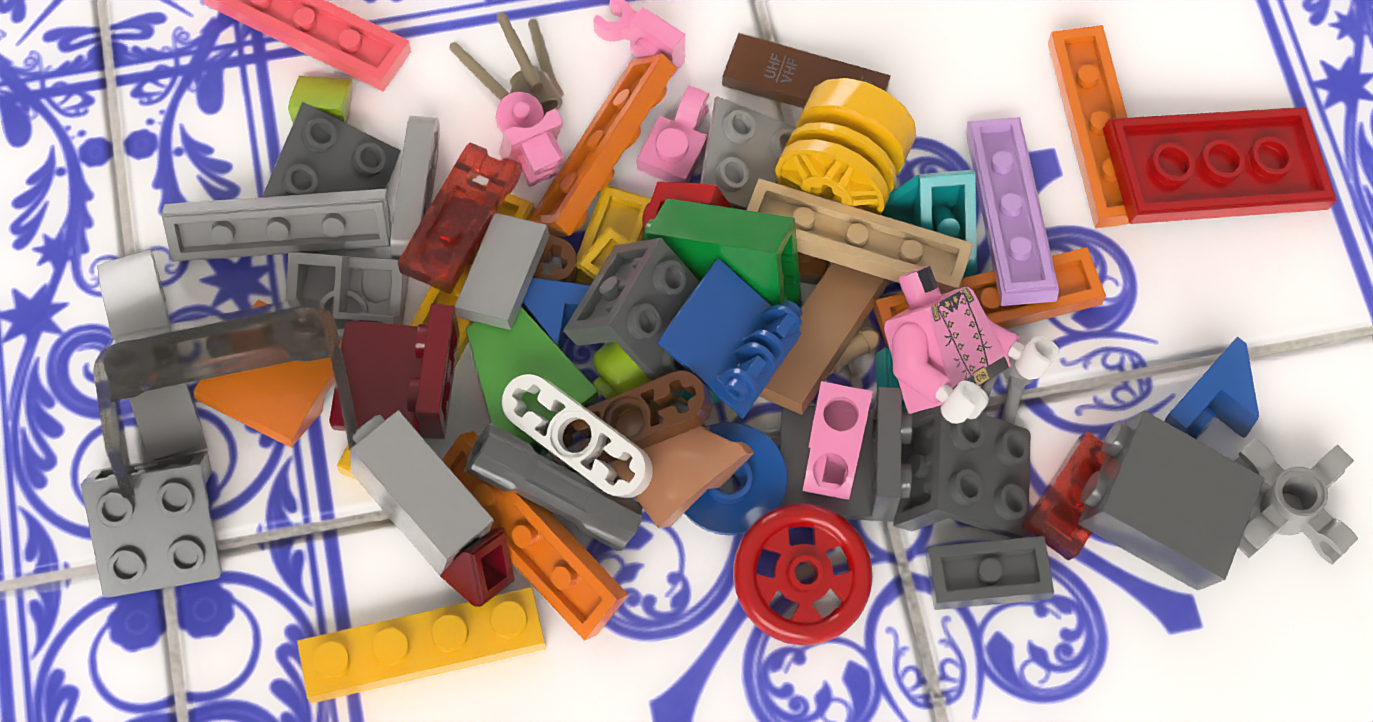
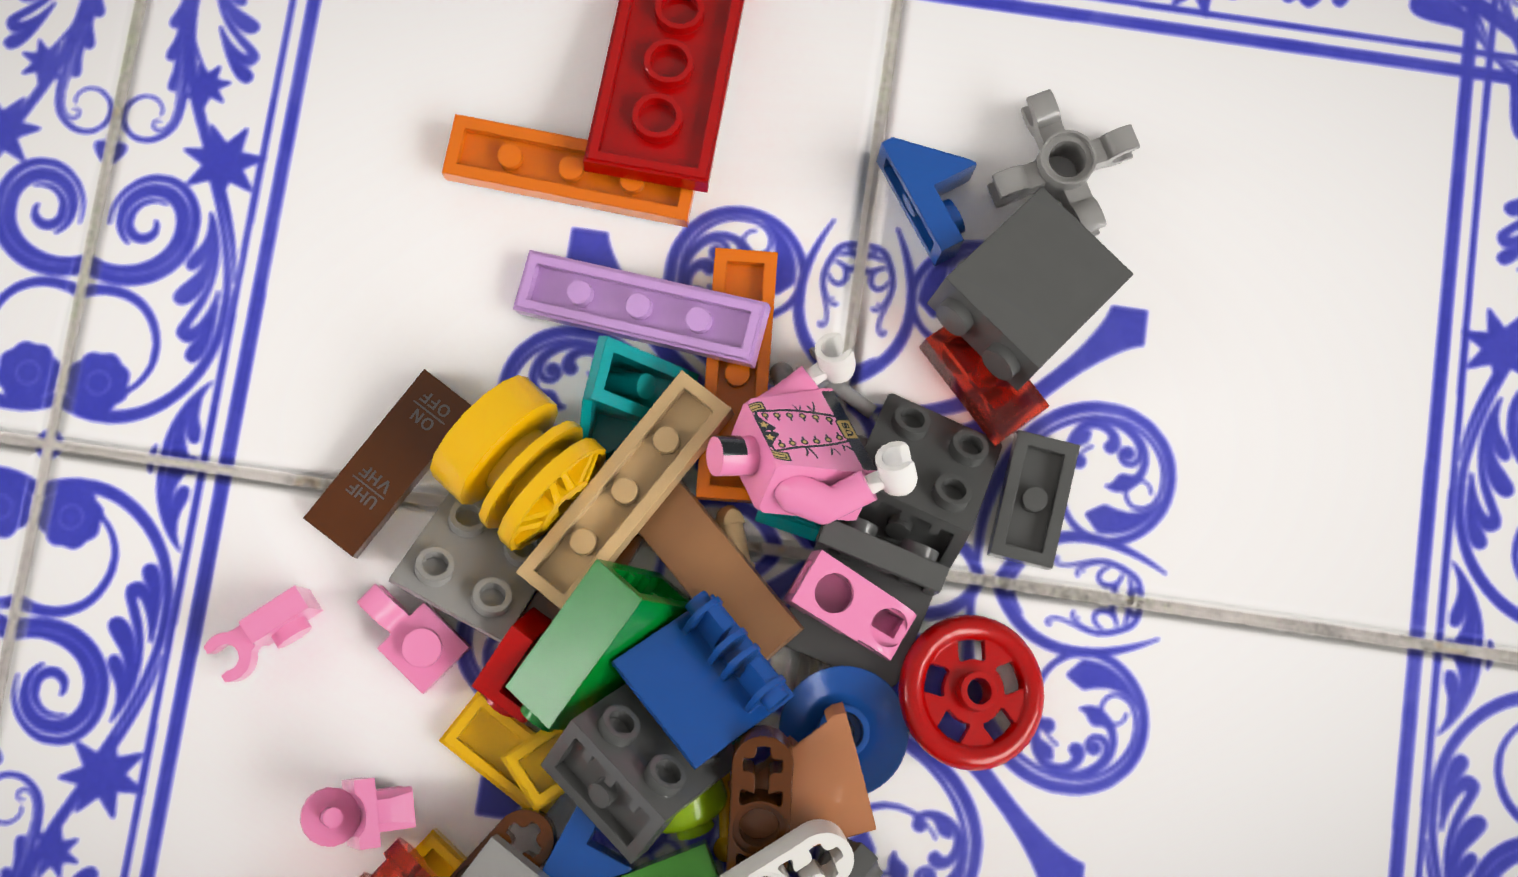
camera: 75 degrees left, 15 degrees up
(529, 79) = (283, 784): dark tan plant -> none
(602, 144) = (392, 727): orange plate -> none

